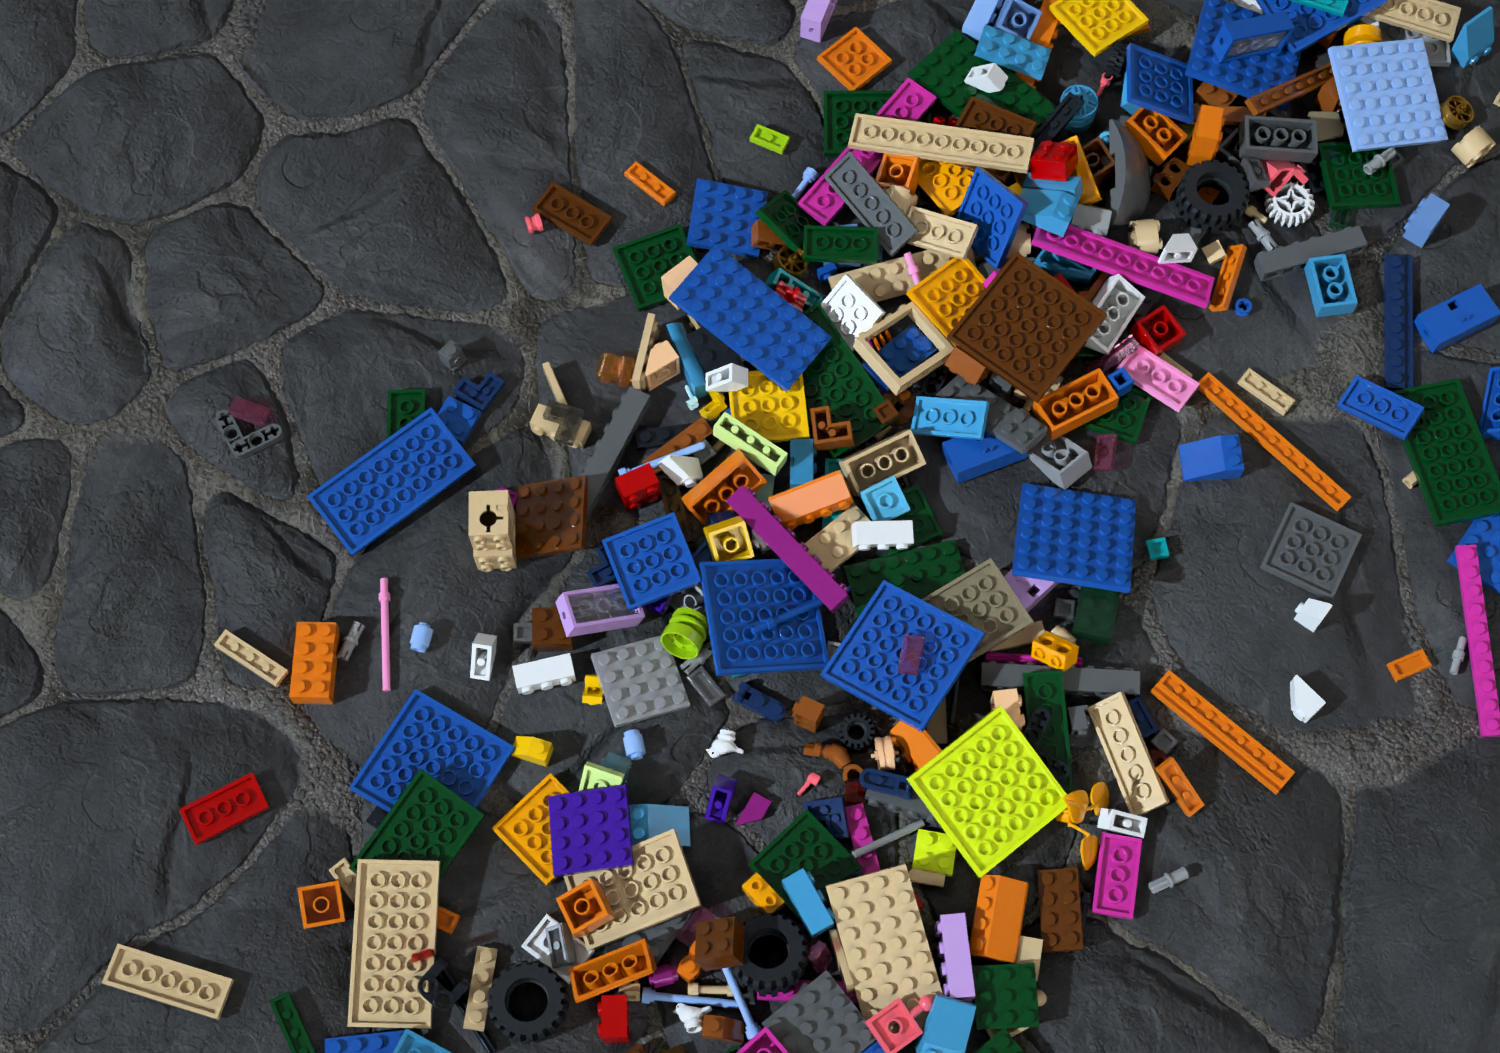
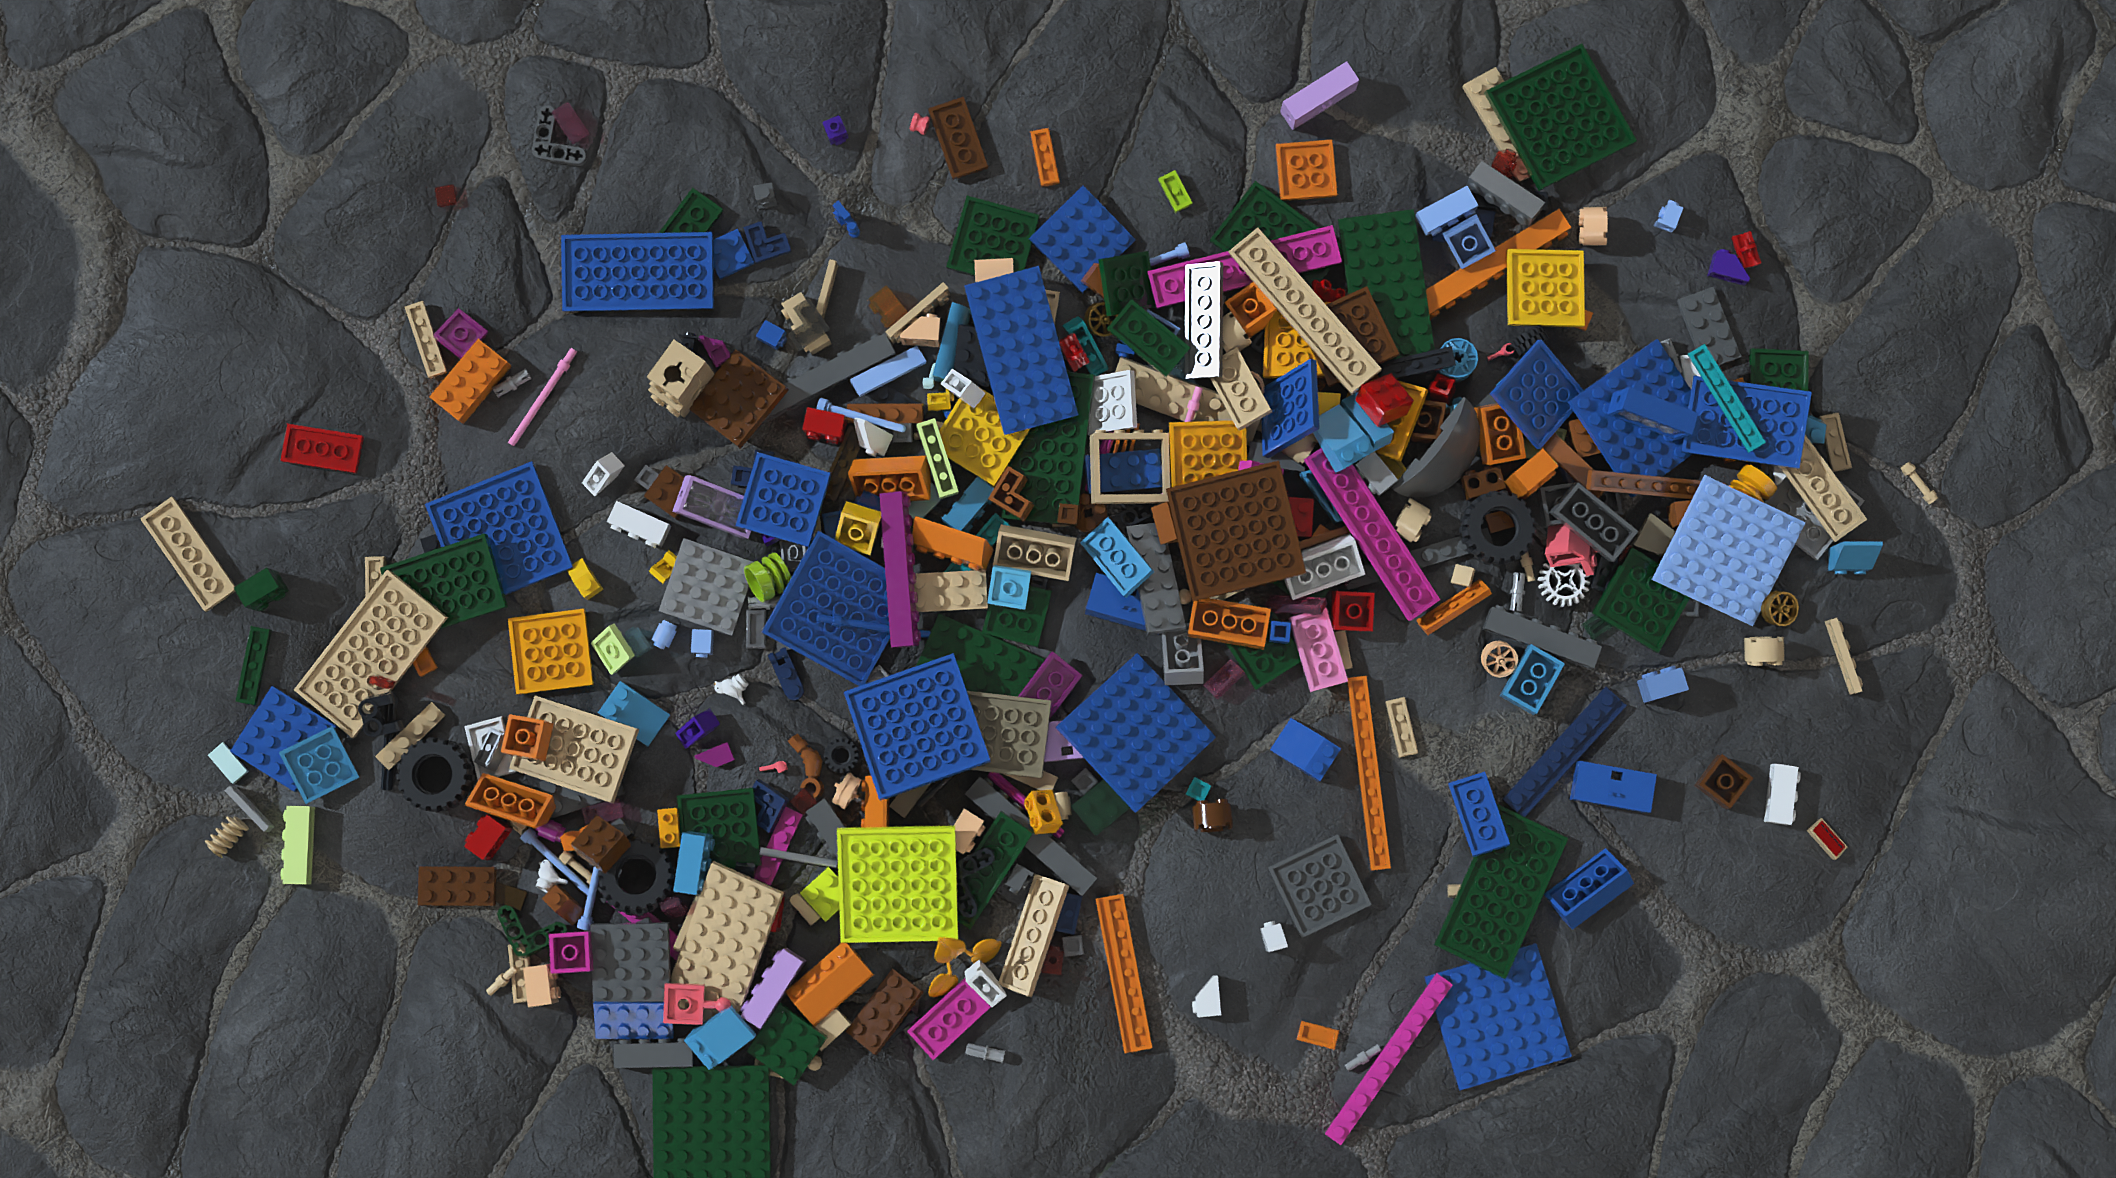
camera: 40 degrees right, 15 degrees up
(184, 537) = (445, 195): none -> clear red tile
(257, 960) = (261, 589): none -> dark green brick
(277, 632) = (459, 333): none -> magenta plate
(321, 904) = (339, 582): orange brick -> none
(421, 637) = (567, 421): light blue brick -> none
(472, 270) = (835, 130): none -> dark purple bracket
(531, 327) = (843, 217): none -> blue plate
(539, 453) = (772, 335): none -> blue brick
(590, 831) = (577, 680): dark purple plate -> none
(654, 414) = (888, 371): none -> light blue tile
(670, 727) = (702, 643): none -> light blue brick
(808, 713) = (812, 714): dark orange brick -> none
(882, 534) = (983, 614): white brick -> none
(885, 783) = (825, 814): dark blue plate -> none
(911, 655) = (919, 733): clear pink plate -> none
(975, 547) = (1052, 682): none -> magenta plate
(987, 78) = (1394, 278): white slope -> none
(1012, 52) = (1439, 269): dark azure plate -> none
(1084, 131) = (1442, 389): none -> red brick
(1178, 249) = (1428, 553): white slope -> none
(1179, 786) = (1051, 991): orange plate -> none
(1186, 557) = (1212, 816): none -> reddish brown brick
(1245, 303) = (1440, 644): blue bush -> none
(1254, 173) = (1547, 536): flat silver slope -> none
(1294, 288) = (1499, 659): none -> light nougat wheel
(1379, 161) = (1670, 602): light grey axle -> none

